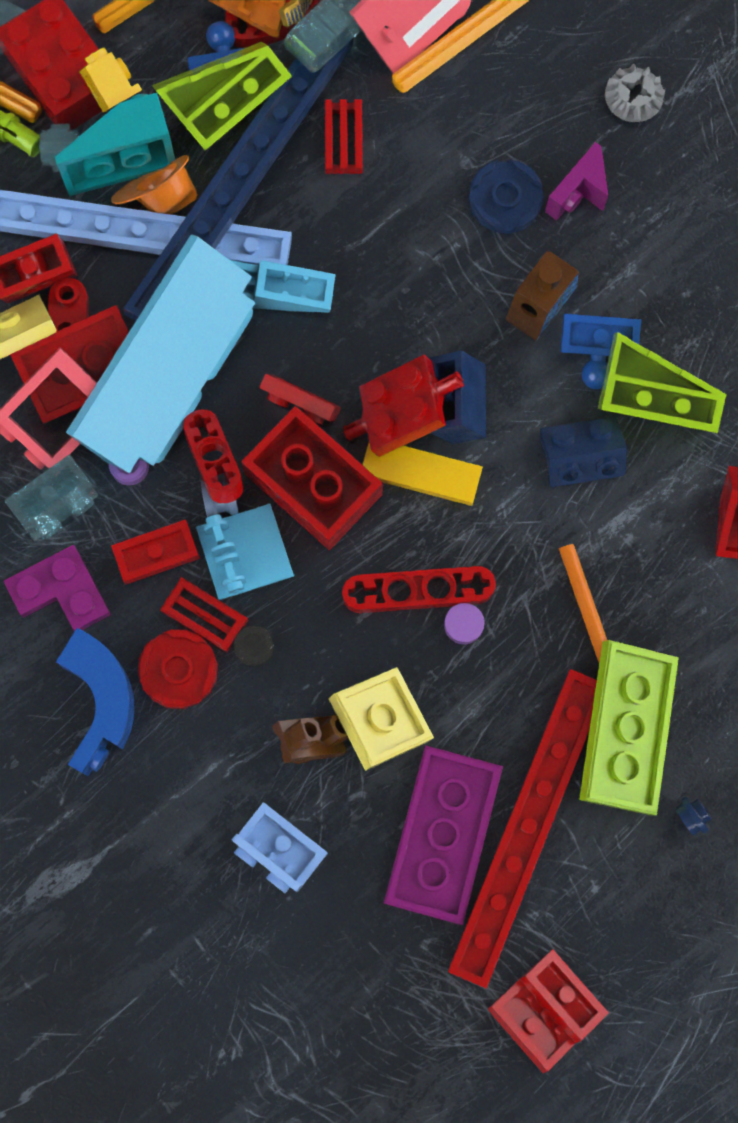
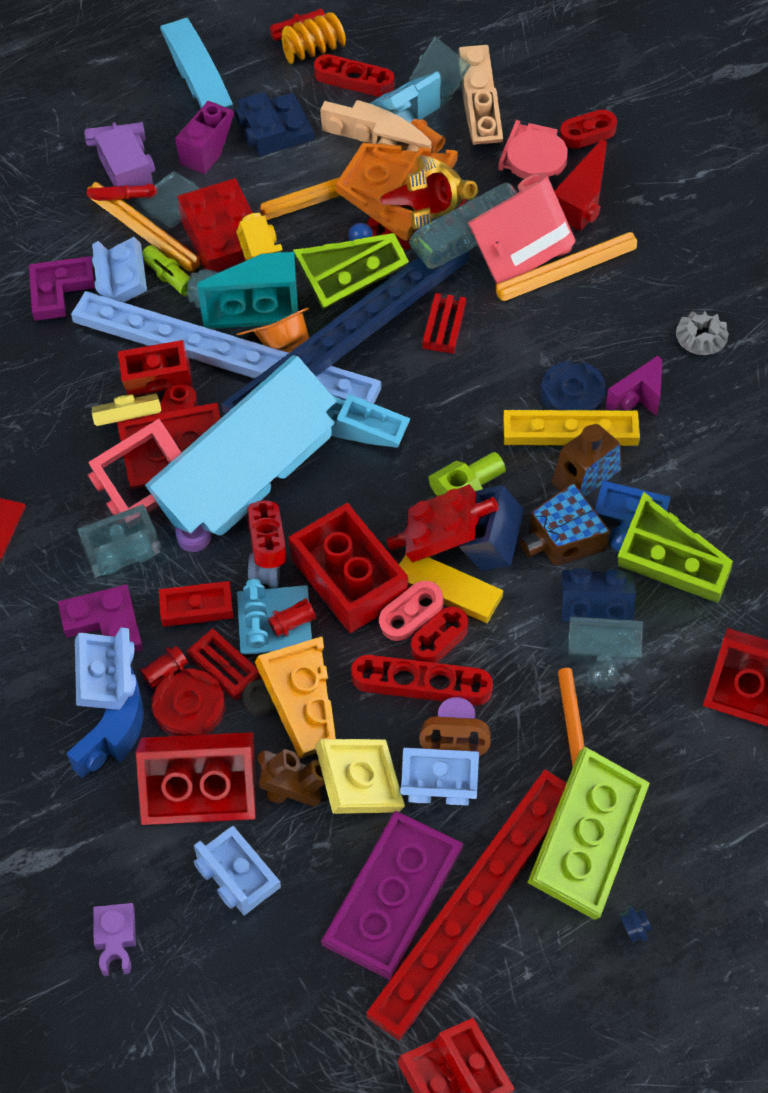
camera: 15 degrees right, 20 degrees down
(83, 665) = (104, 670): none -> light blue bracket
(140, 633) = (166, 664): none -> red pin
(168, 938) = (113, 931): none -> medium lavender plate
(210, 755) = (196, 778): none -> red slope
(264, 550) = (291, 618): none -> red pin
(284, 393) = (369, 515): red plate -> none
(294, 636) = (299, 692): none -> light orange wing
(388, 511) = (409, 610): none -> coral plate
(418, 334) = (462, 475): none -> lime piece
(418, 528) = (434, 630): none -> red beam
(463, 699) = (439, 774): none -> light blue bracket
(469, 650) = (455, 734): none -> dark orange beam
(513, 248) = (562, 426): none -> yellow plate
(534, 378) = (565, 528): none -> torso
(602, 505) = (605, 641): none -> clear light blue plate

